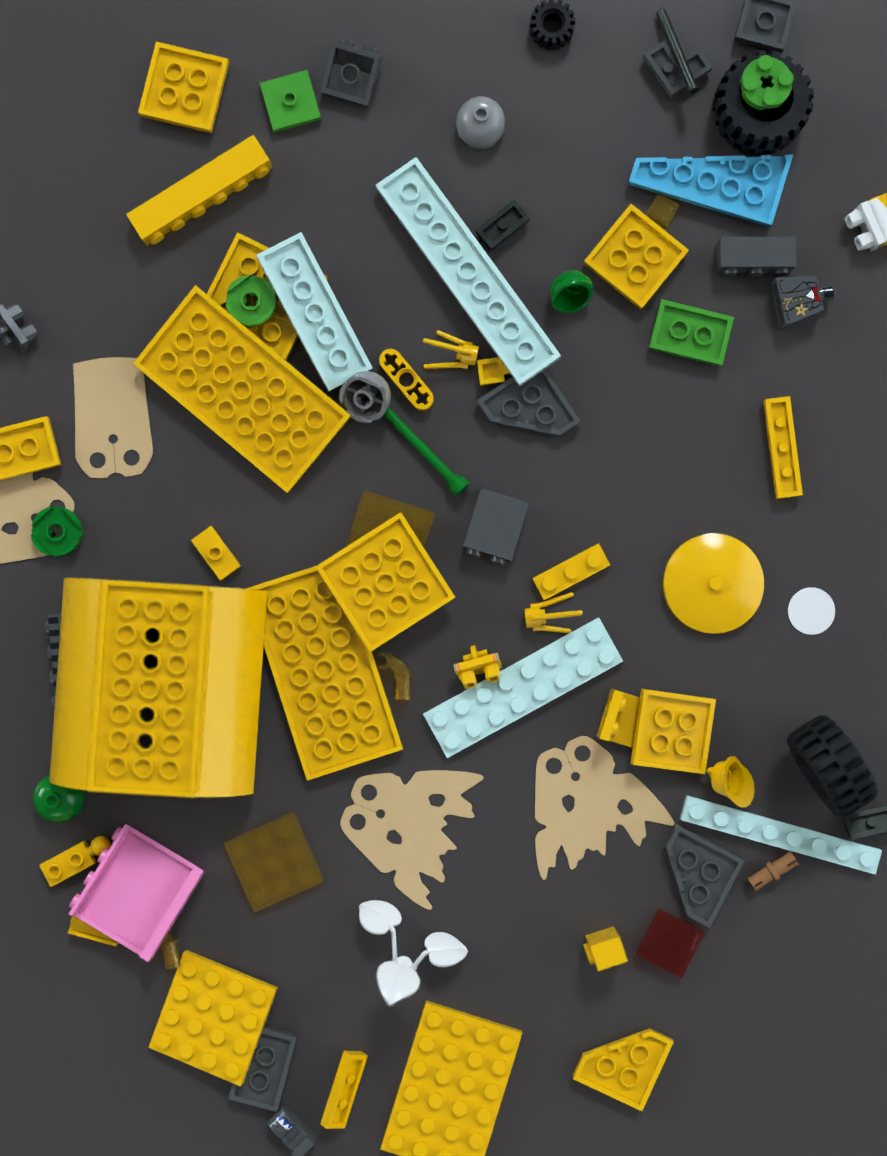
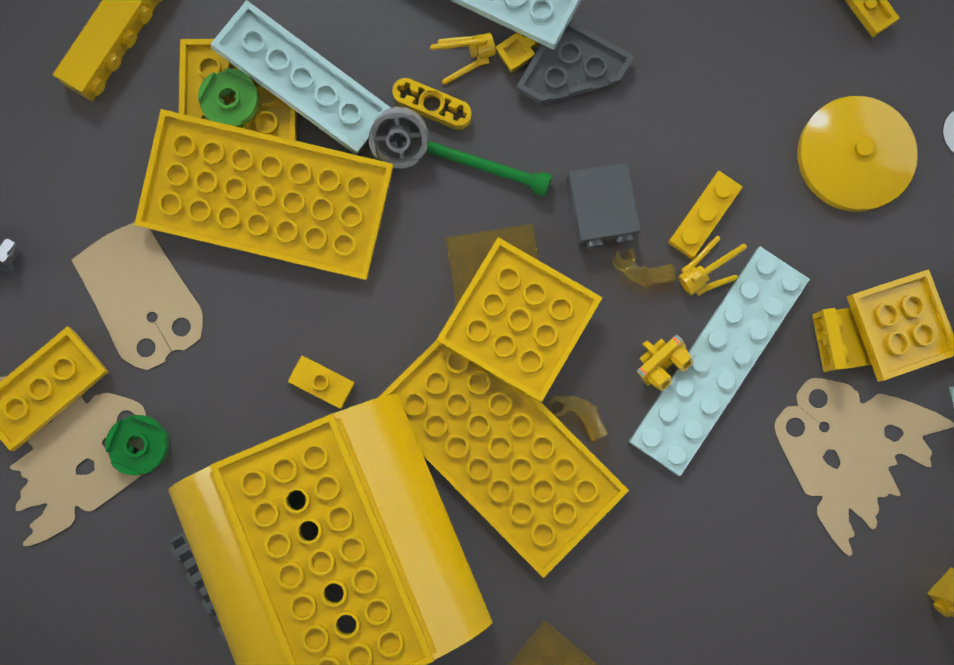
camera: 25 degrees left, 5 degrees down
(416, 821) = (678, 561): tan piece -> none
(498, 594) = (644, 275): none -> clear yellow piece

